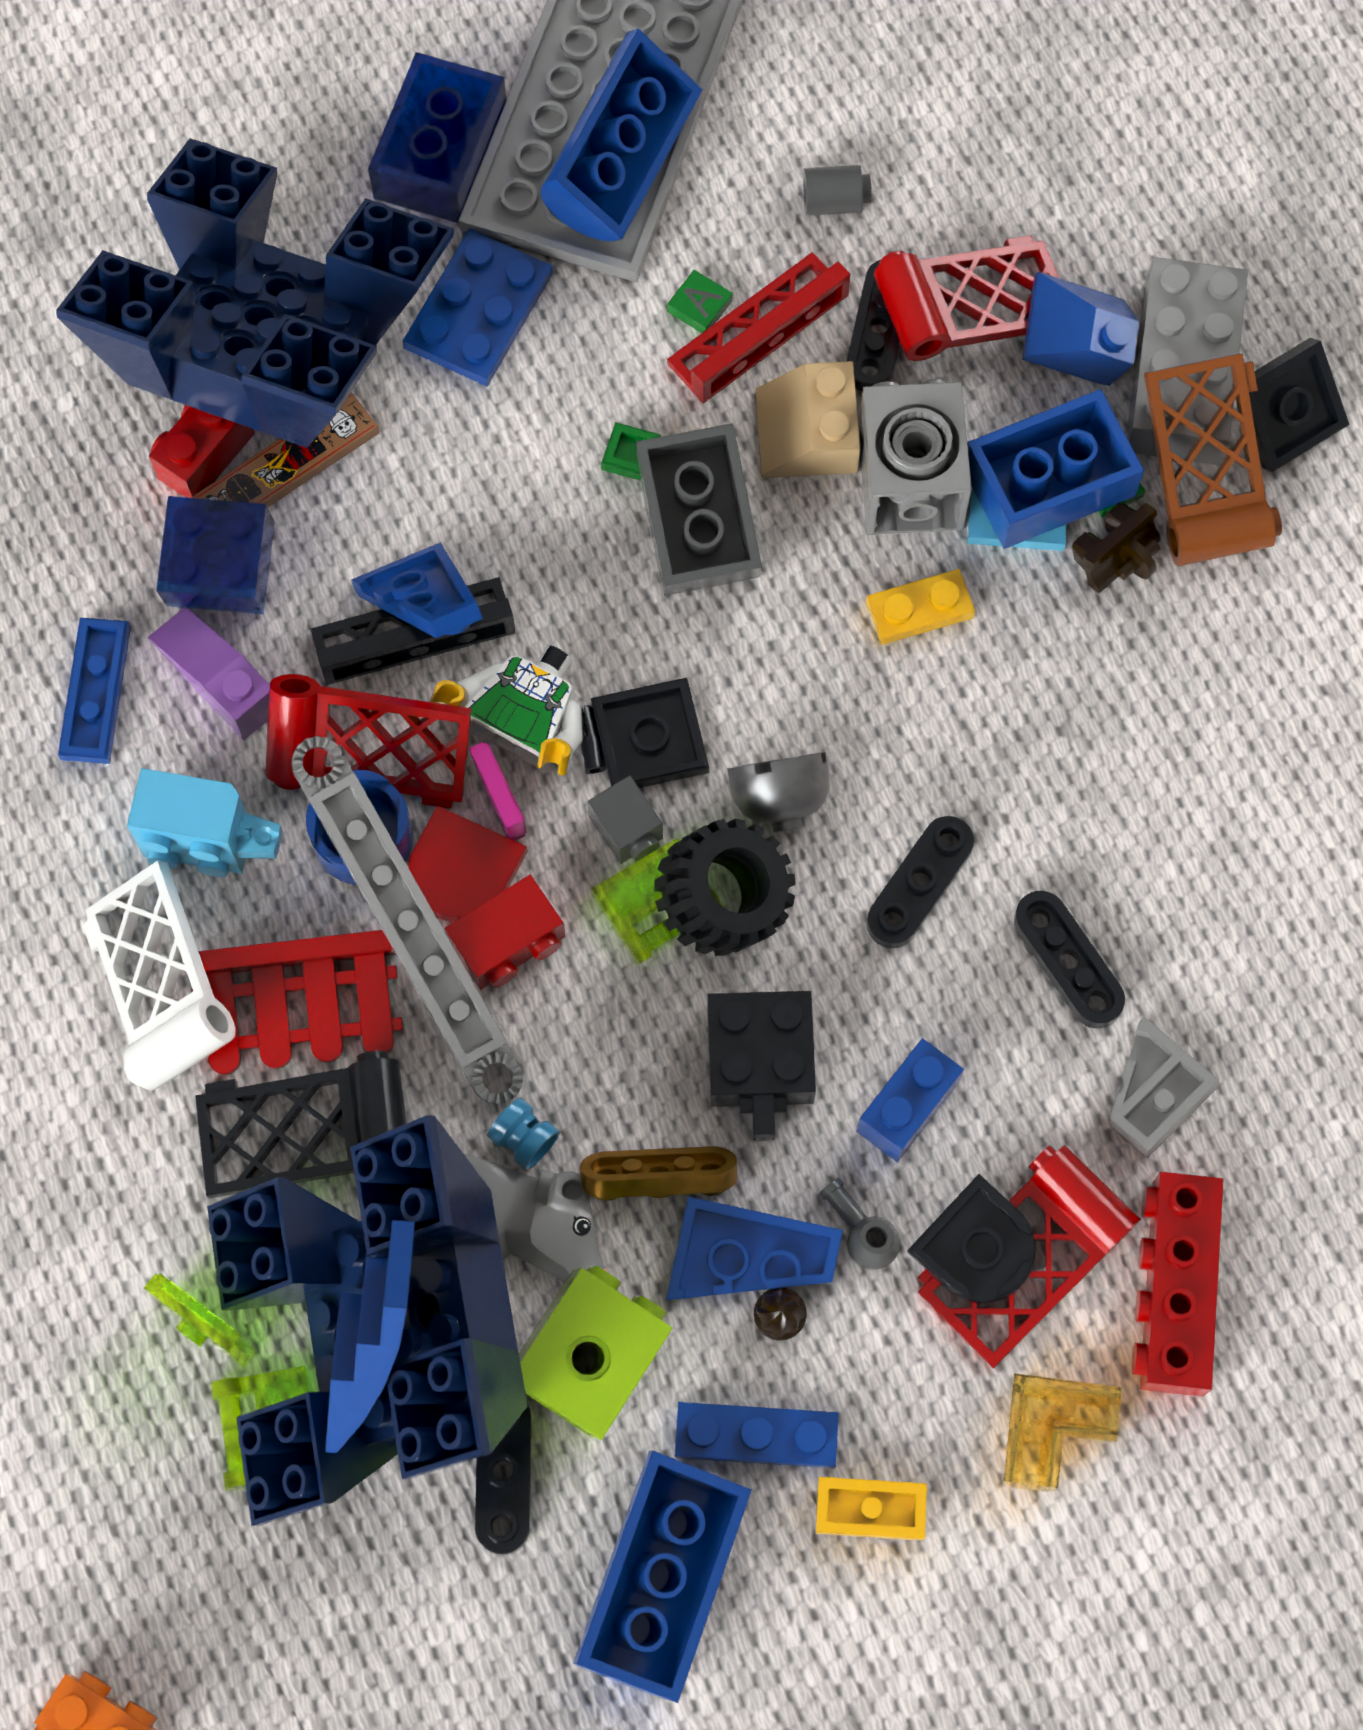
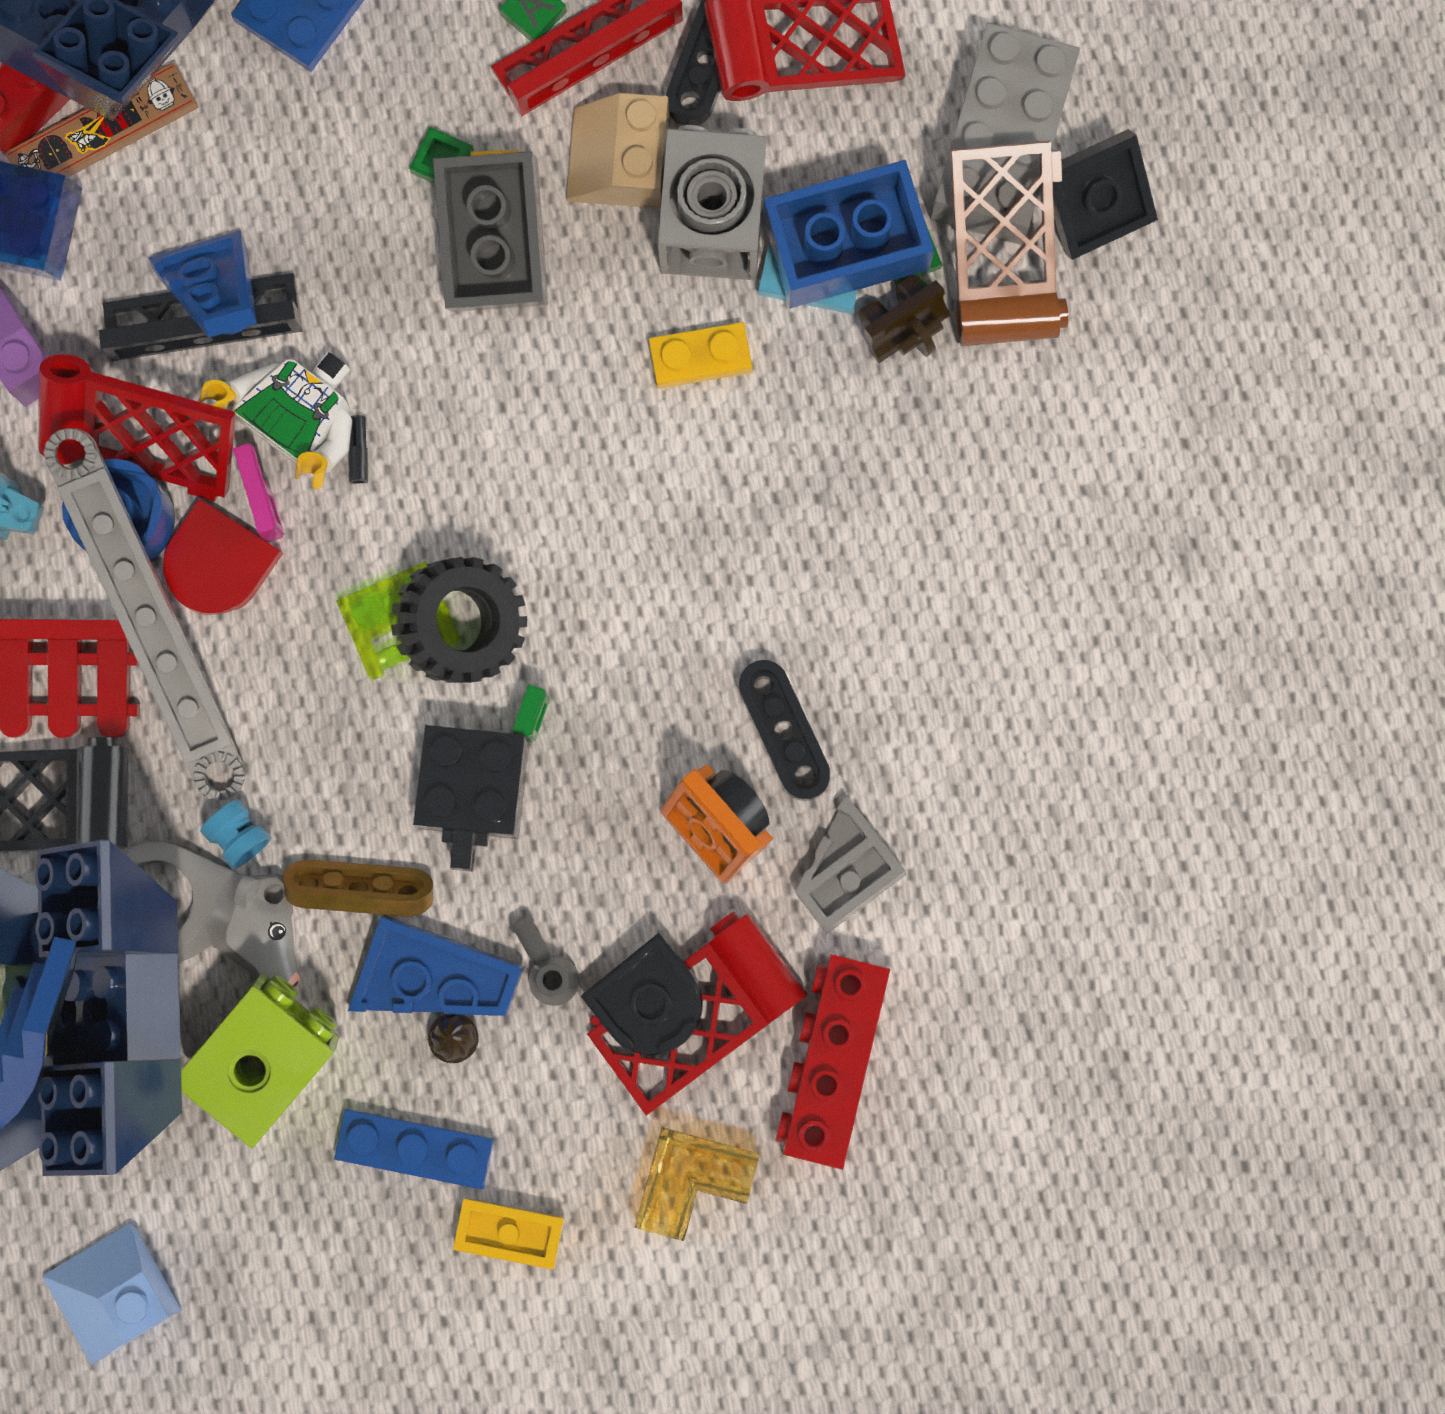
camera: 10 degrees right, 10 degrees up
(457, 1632) = (111, 1293): none -> light blue slope
(506, 933) = (246, 636): red piece -> none
(506, 1497) = (173, 1178): black plate -> none
(626, 821) = (378, 538): dark grey brick -> none
(650, 734) = (416, 453): black tile -> none
(662, 1577) = (300, 1274): blue brick -> none
(781, 789) = (531, 526): flat silver cylinder -> none
(810, 969) = (531, 713): none -> green tile
(909, 1100) = (606, 850): blue brick -> none
(914, 901) = (648, 655): black plate -> none
(1020, 1054) = (719, 820): none -> orange piece
(1079, 330) = (903, 87): blue slope -> none

